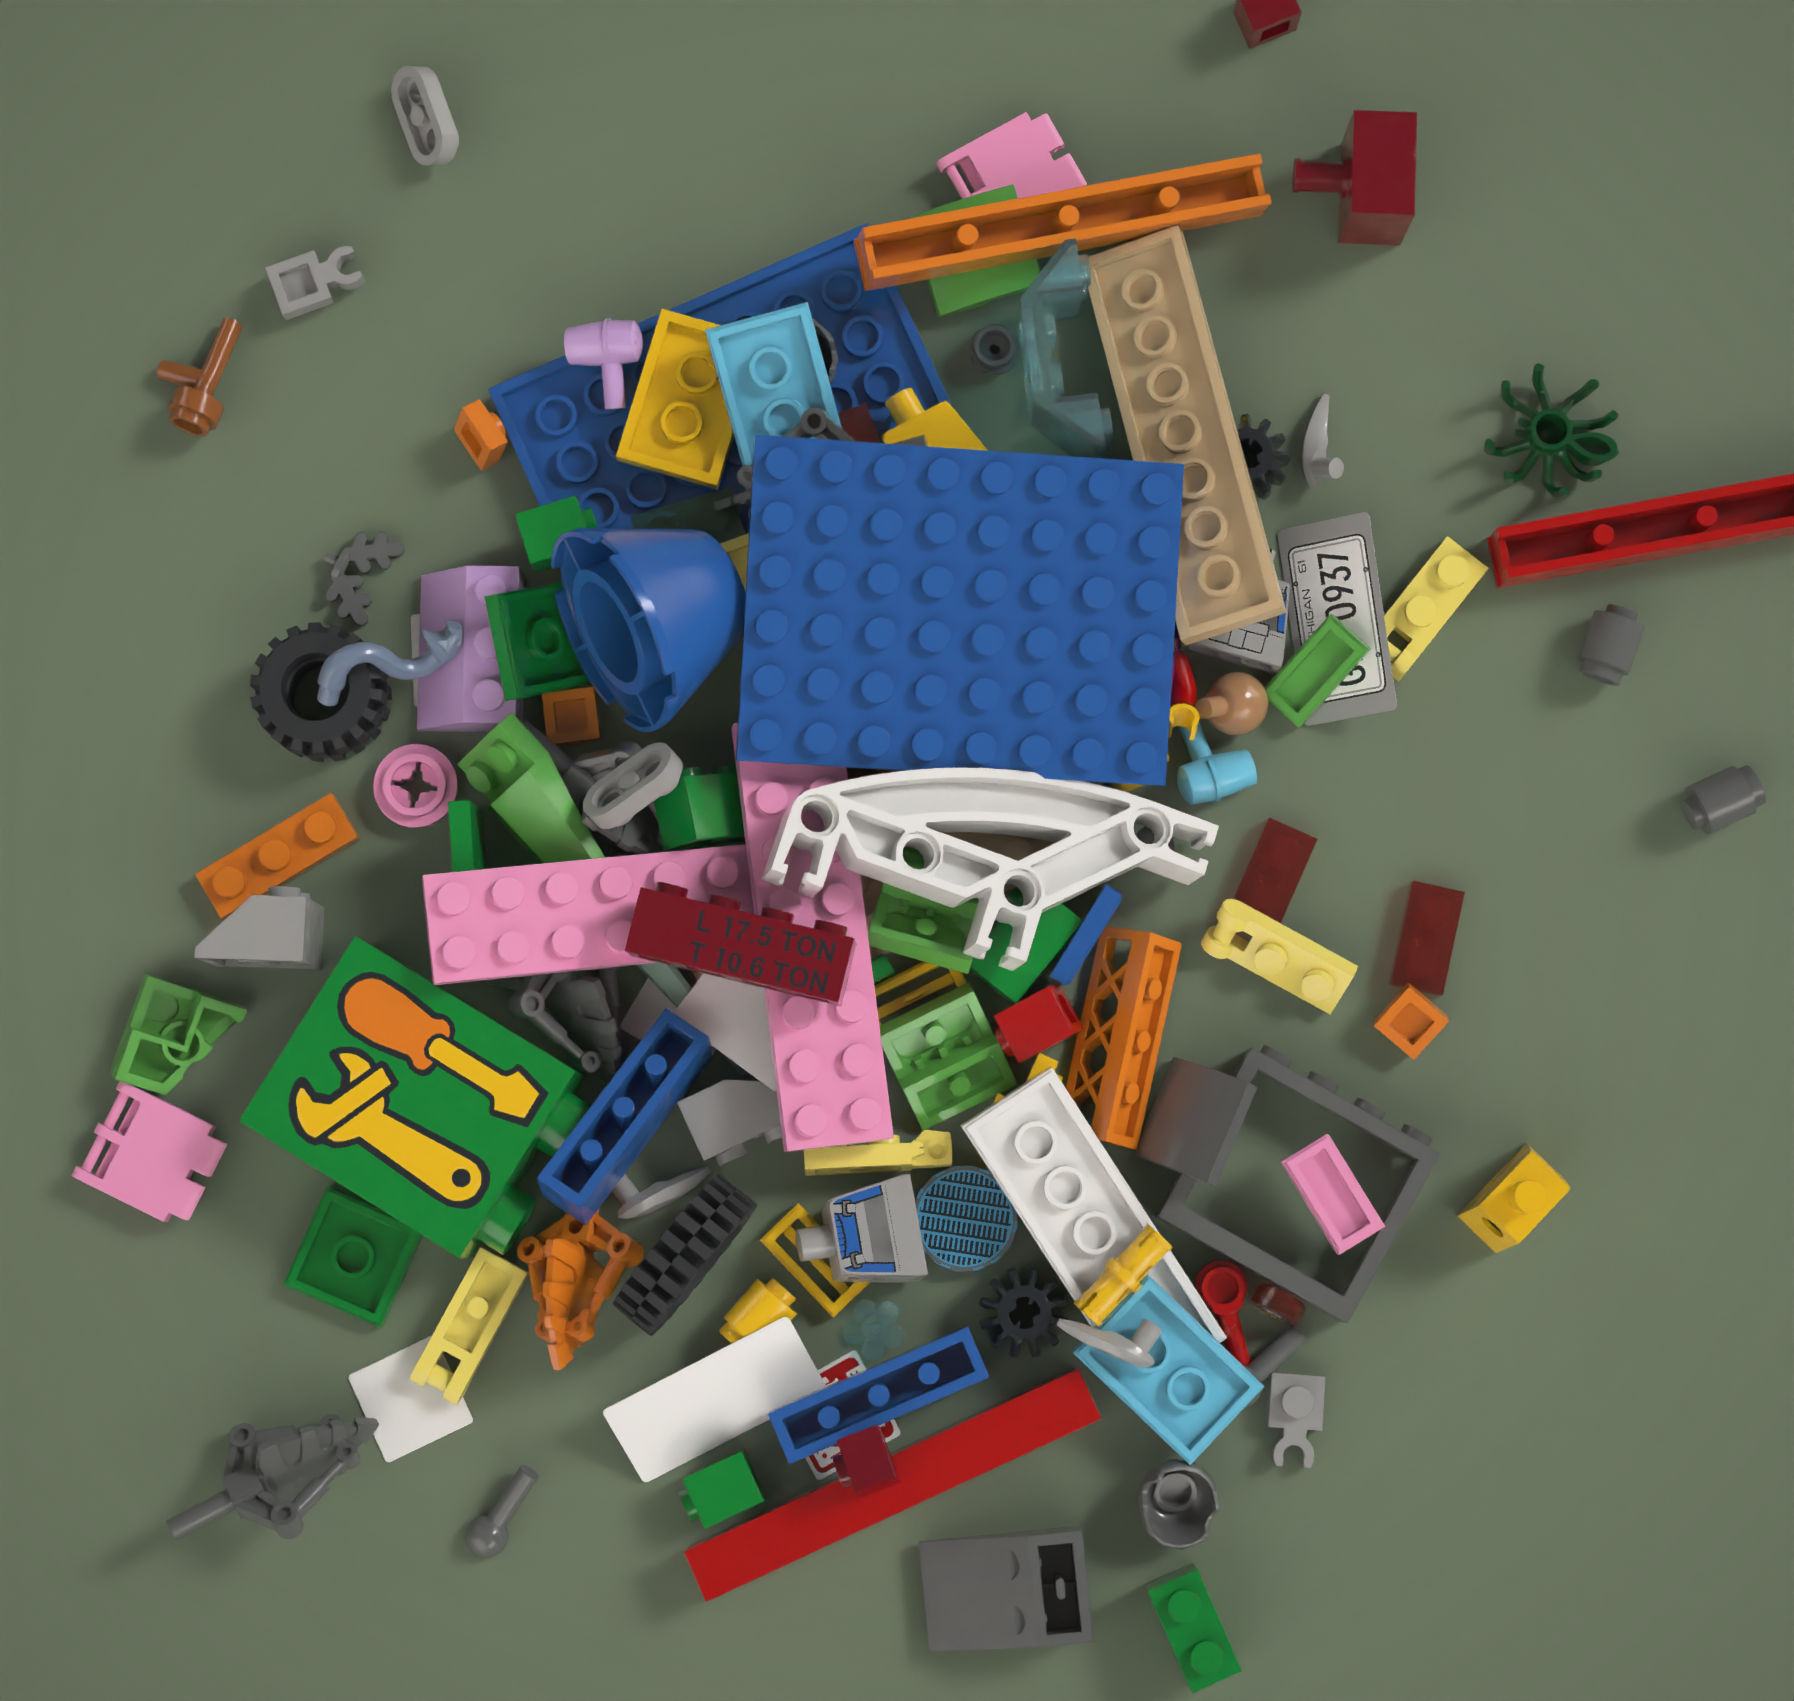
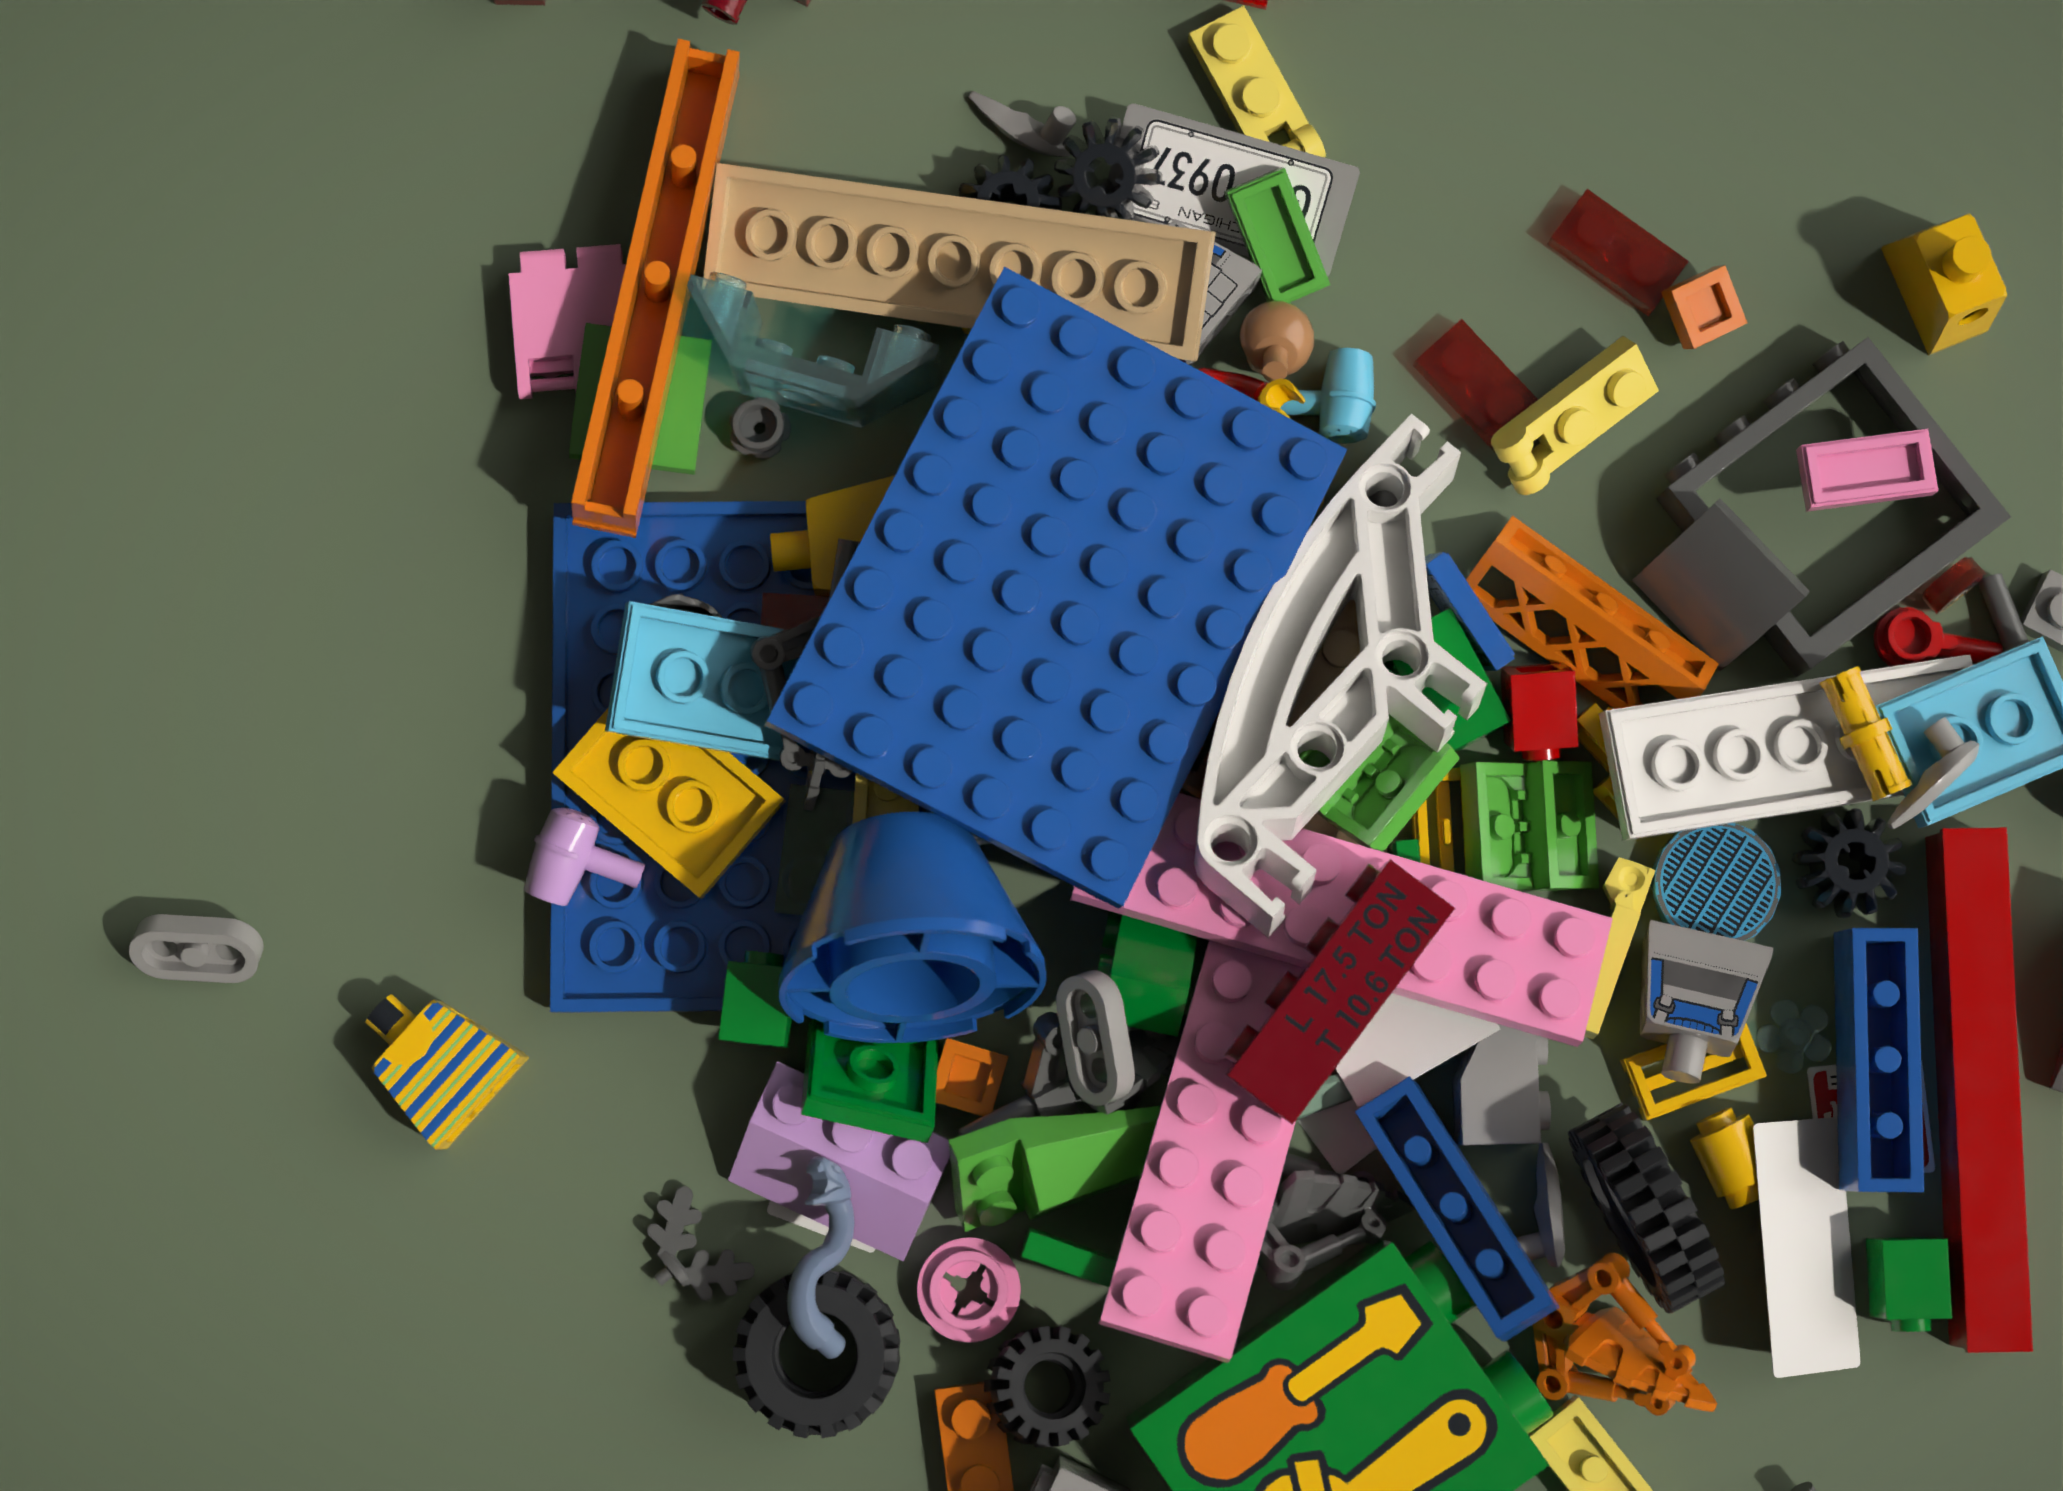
camera: 70 degrees left, 0 degrees up
(193, 404) = (419, 1358): dark orange piece -> none
(305, 283) = (329, 1171): light grey plate -> none
(371, 904) = (1085, 1381): none -> black tyre
(414, 329) = (440, 1066): none -> torso
(481, 434) = (598, 1041): orange plate -> none
(865, 1462) = (1958, 1105): dark red plate -> none
(1323, 509) = (1114, 150): none -> black gear

